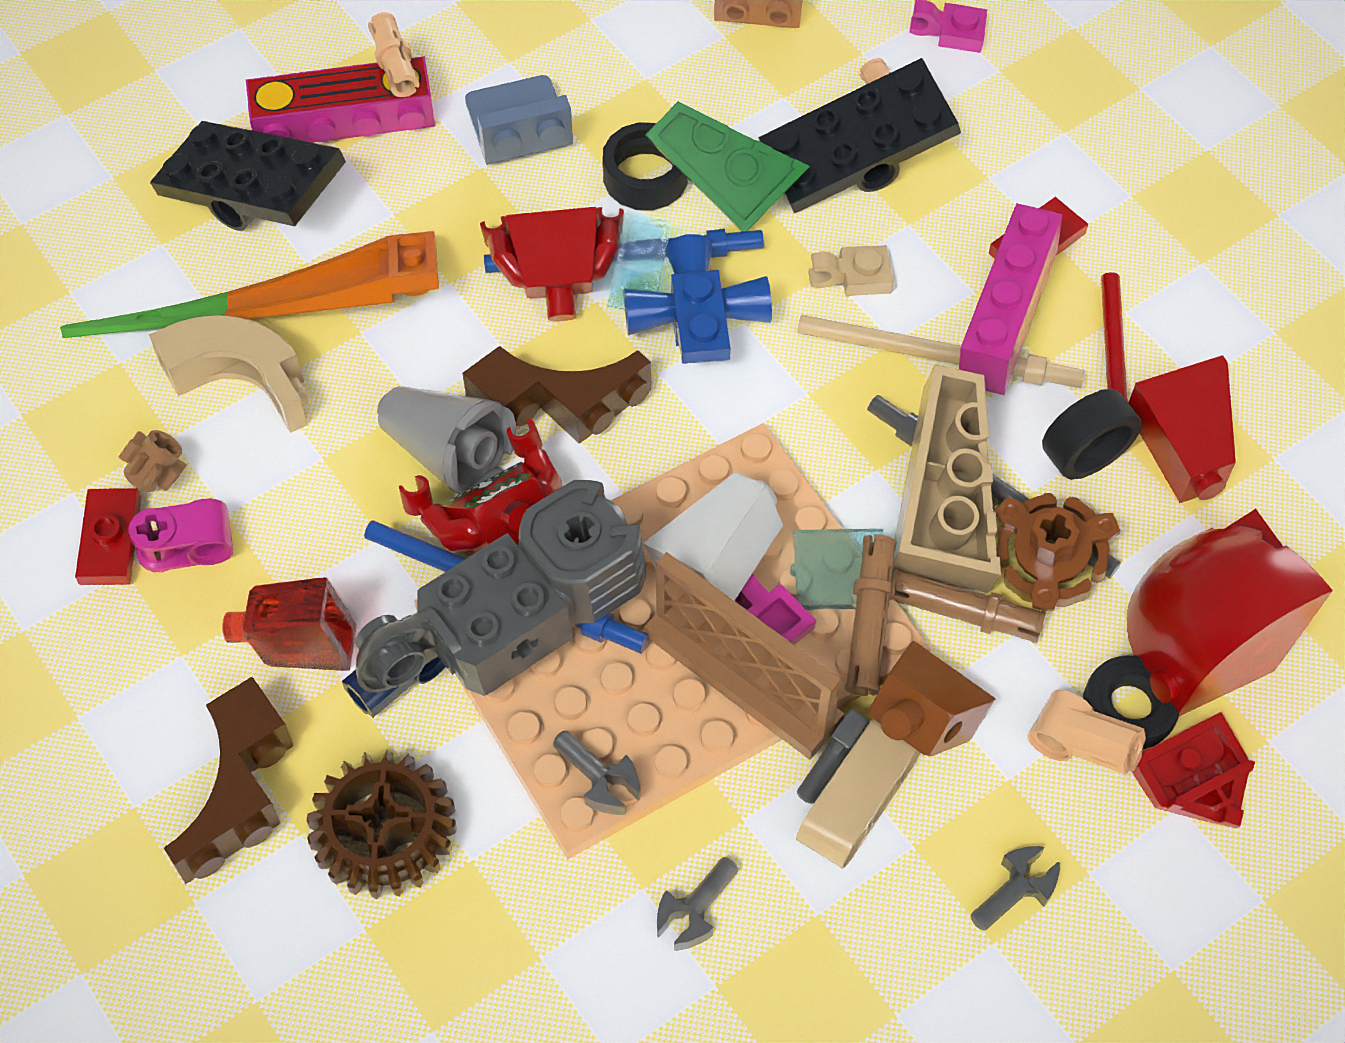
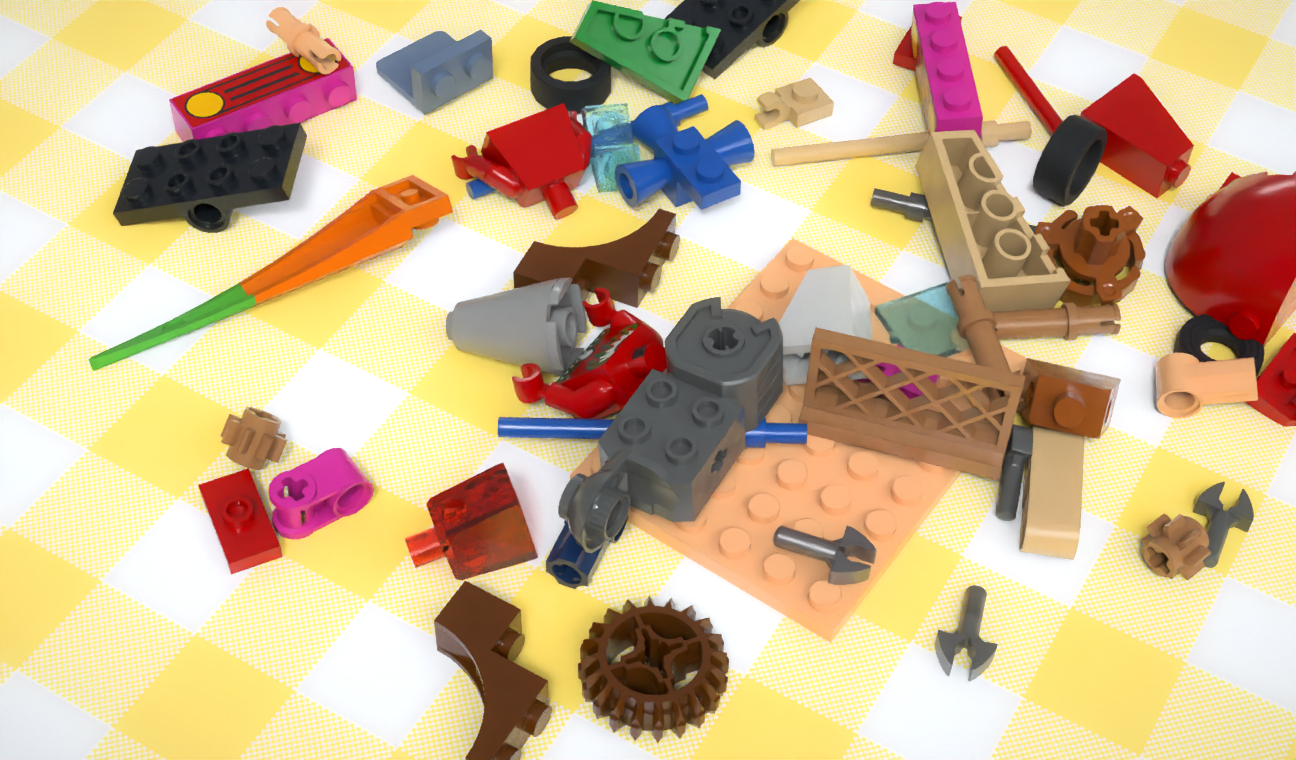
camera: 25 degrees left, 10 degrees down
(233, 348) = (281, 323): tan arch -> none
(946, 897) = (1176, 546): none -> medium nougat gear

